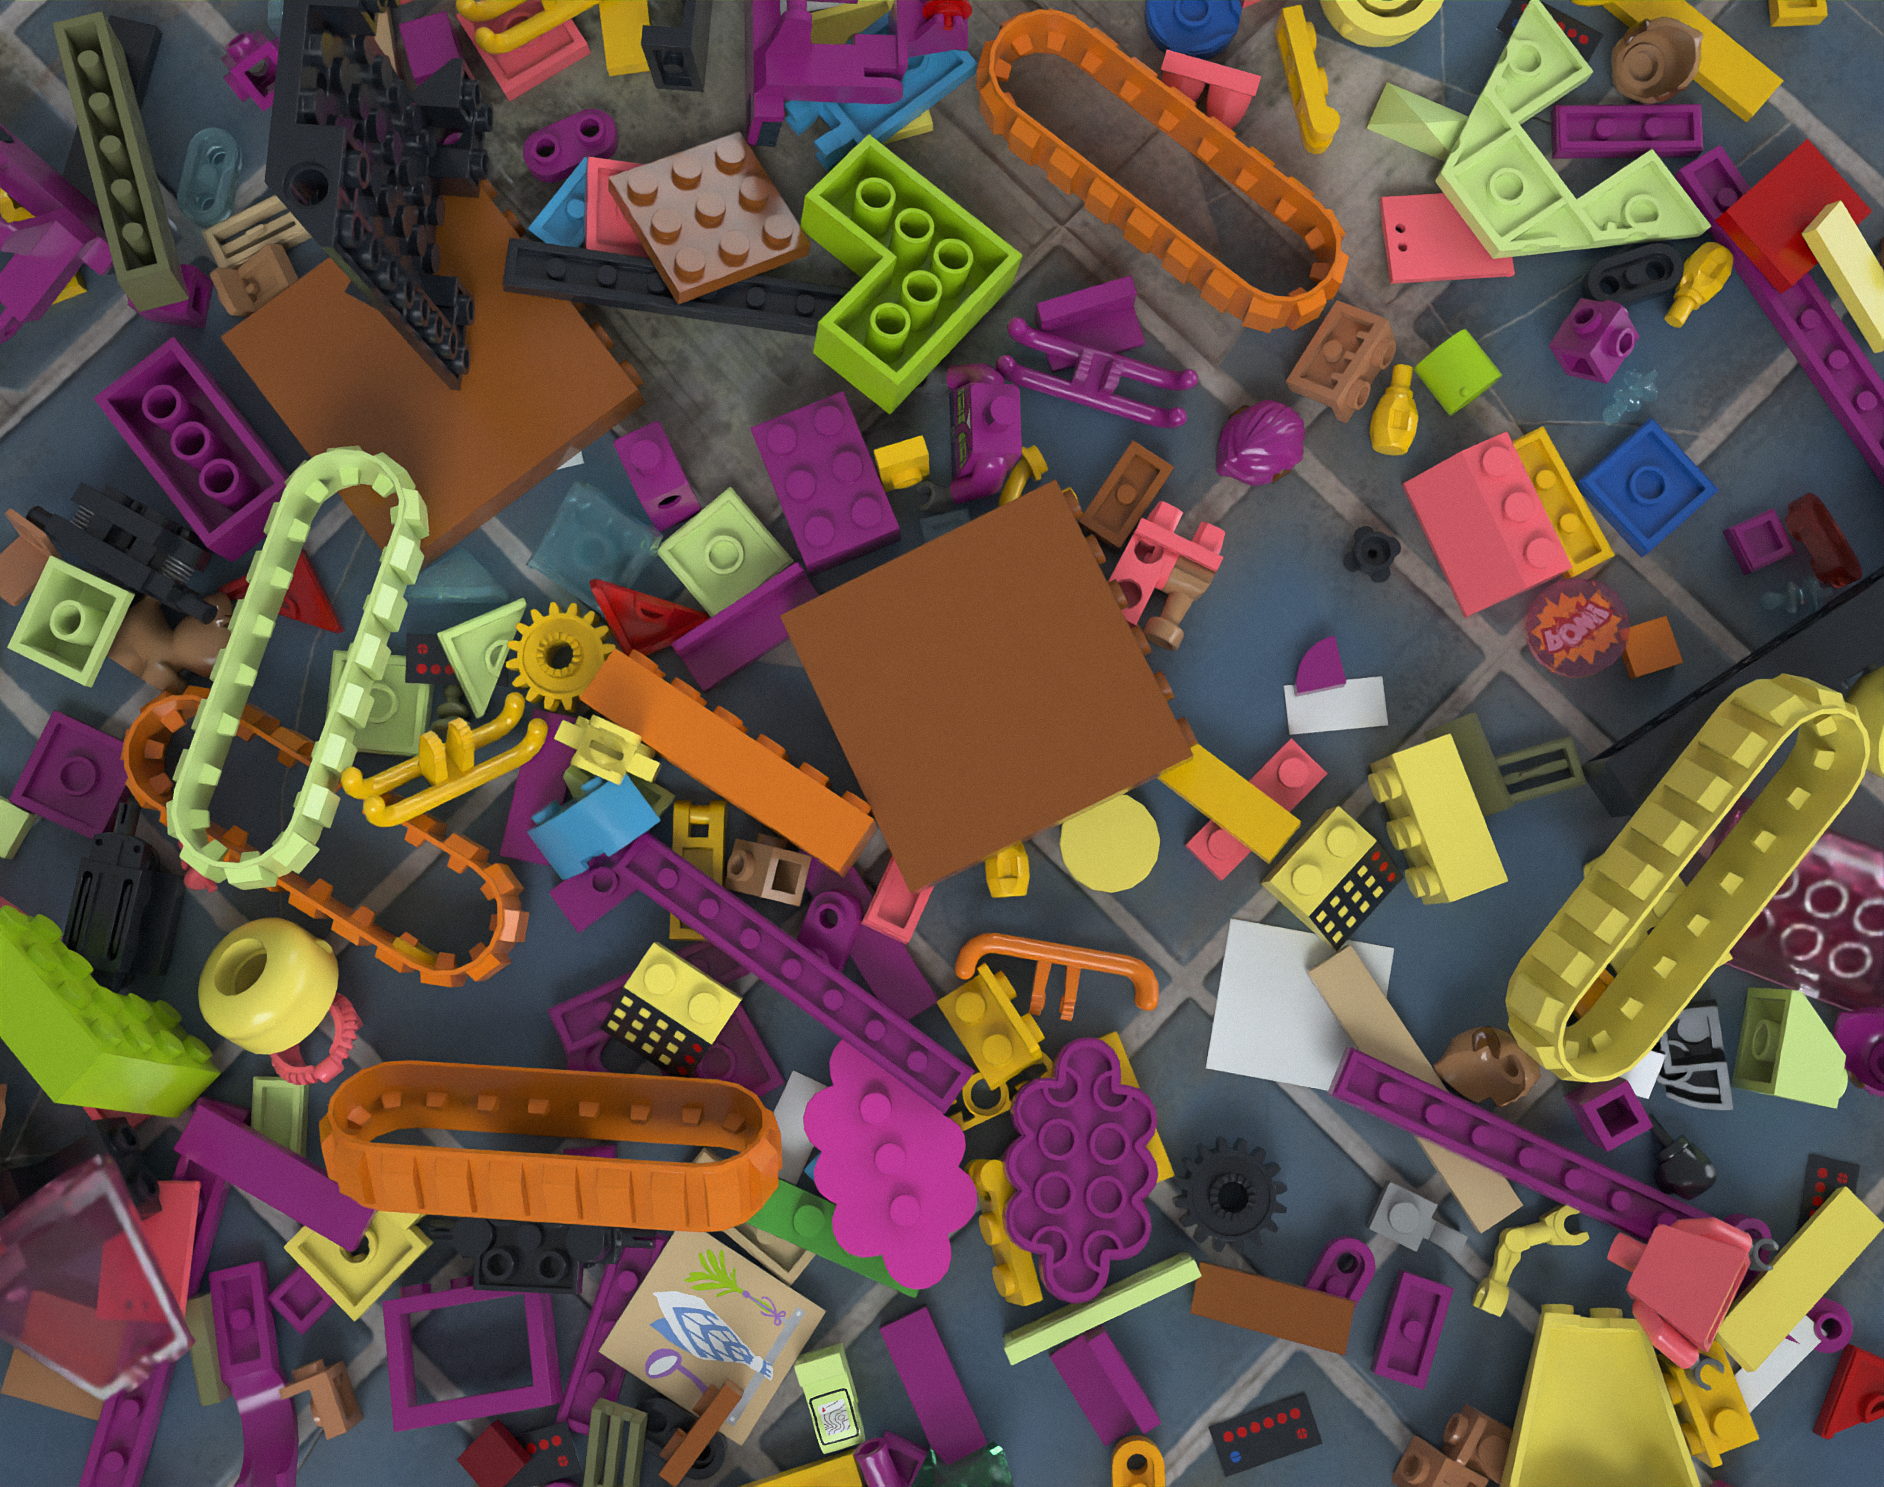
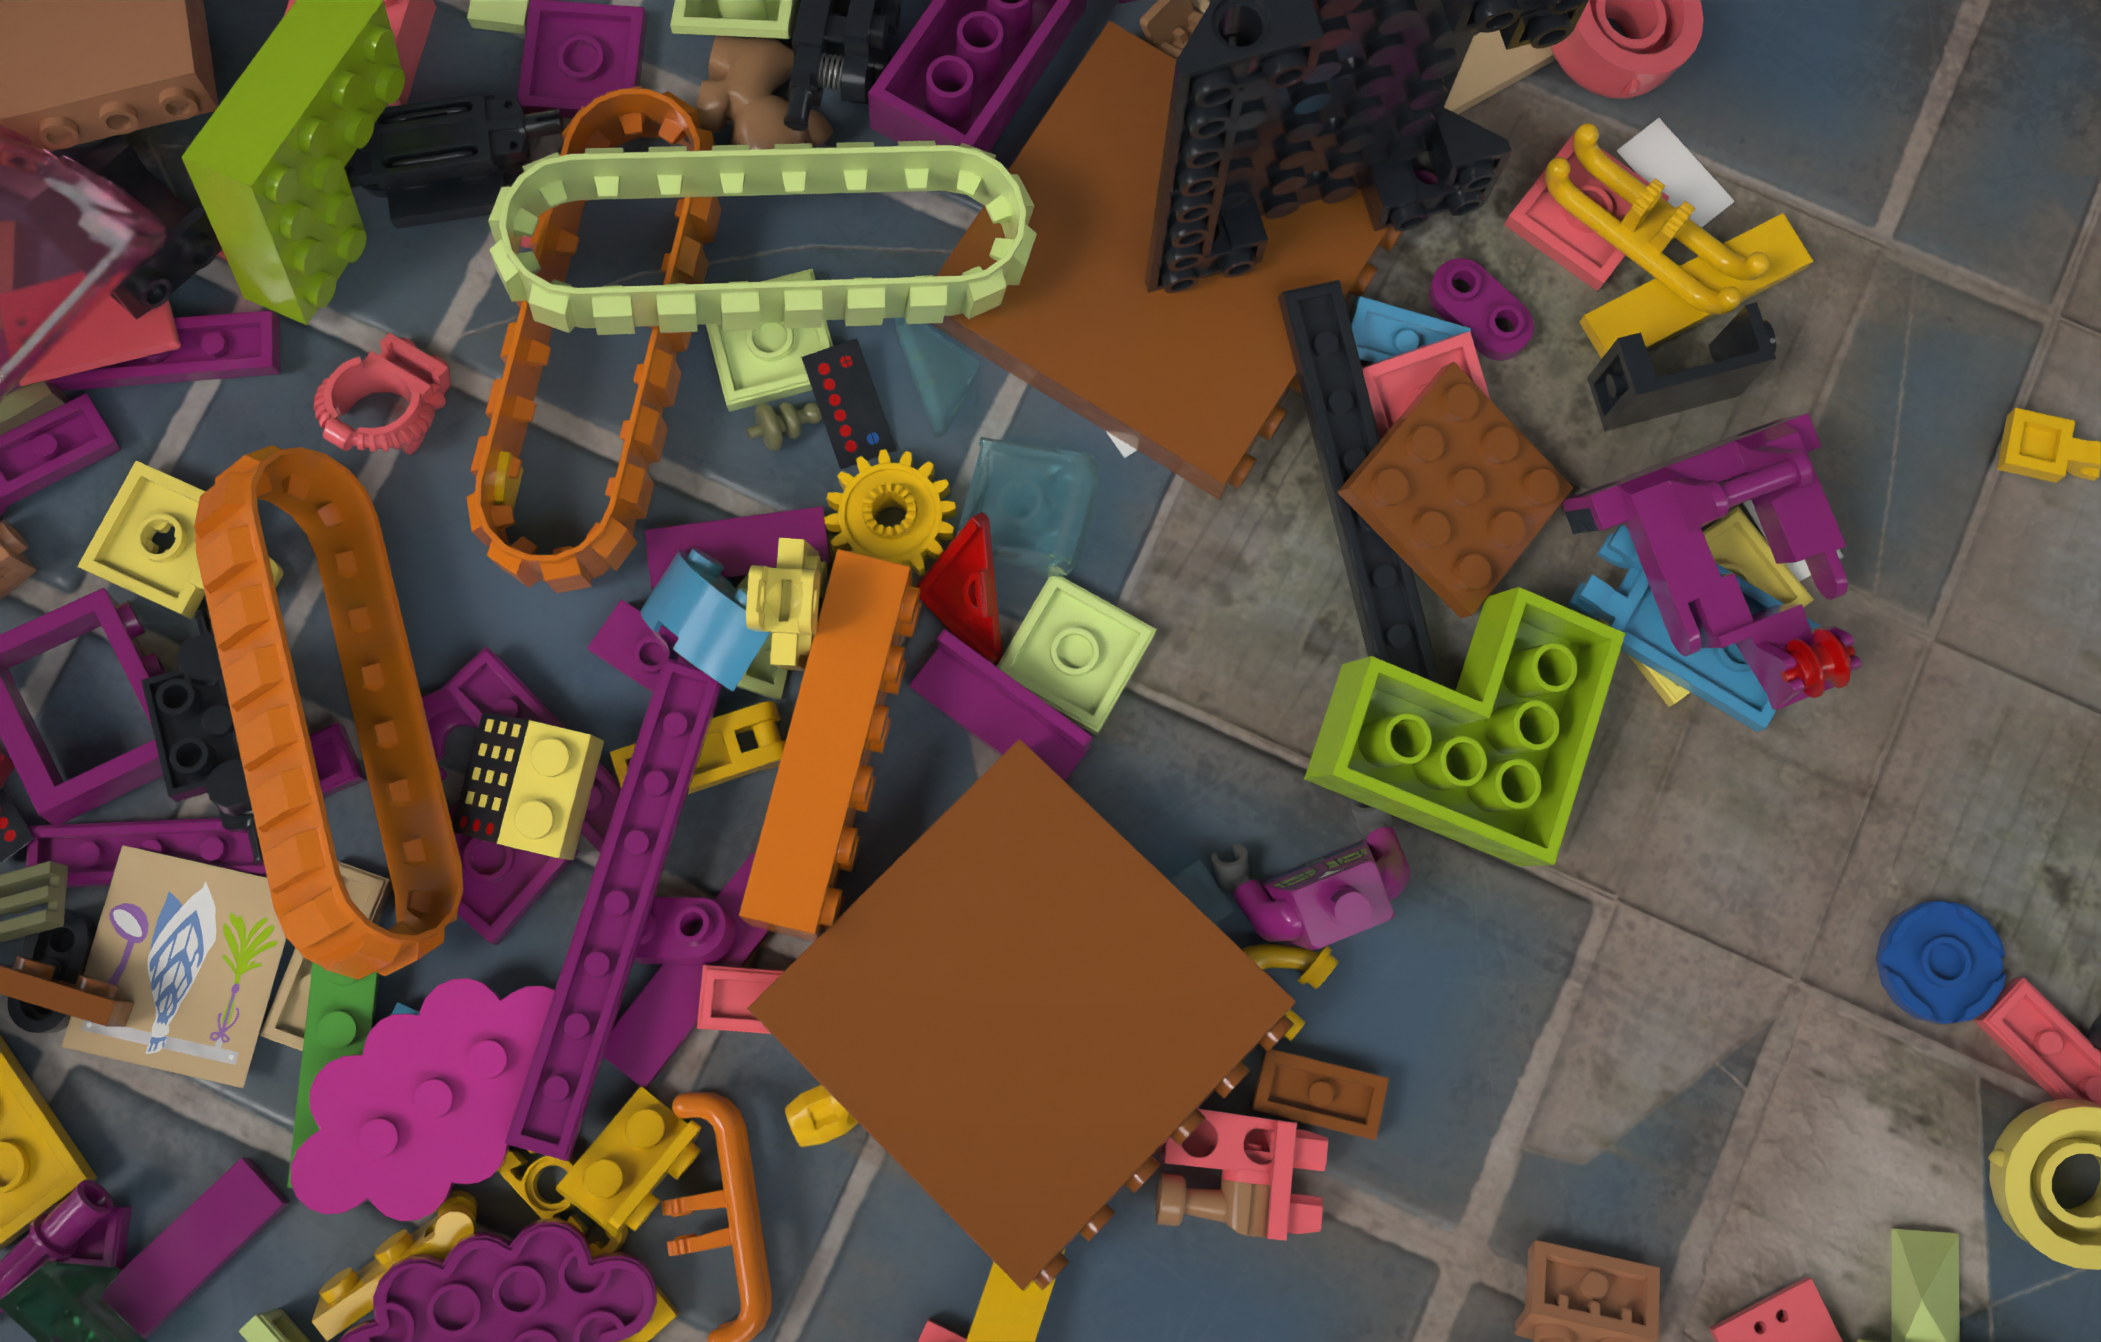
camera: 65 degrees right, 5 degrees down
(268, 985) = (412, 337): light yellow piece -> none
(273, 1175) = (208, 417): magenta tile -> none
(281, 1111) = (263, 408): yellowish green tile -> none
(301, 1300) = (85, 500): magenta tile -> none
(303, 601) = (860, 216): red tile -> none
(430, 44) = (1529, 120): magenta brick -> none
(446, 765) = (716, 435): yellow piece -> none
(479, 651) = (865, 423): yellowish green tile -> none
(657, 475) = (1136, 542): magenta torso -> none
(767, 870) = (722, 833): medium nougat brick -> none
(789, 1117) = (445, 963): white sticker -> none
(826, 483) = (1198, 736): magenta brick -> none
(830, 1397) = (146, 1129): yellowish green leg -> none
(902, 463) = (1251, 815): yellow plate -> none
(1093, 316) = (1509, 976): magenta panel -> none
(1095, 377) = (1449, 1006): magenta piece -> none
(1110, 845) = (894, 1230): light yellow tile -> none
(1204, 137) = (1786, 1042): orange piece -> none
(1228, 90) = (1859, 1040): coral tile -> none
(1260, 443) = (1447, 1237): magenta hair -> none
(1305, 81) = (1914, 1131): yellow plate -> none

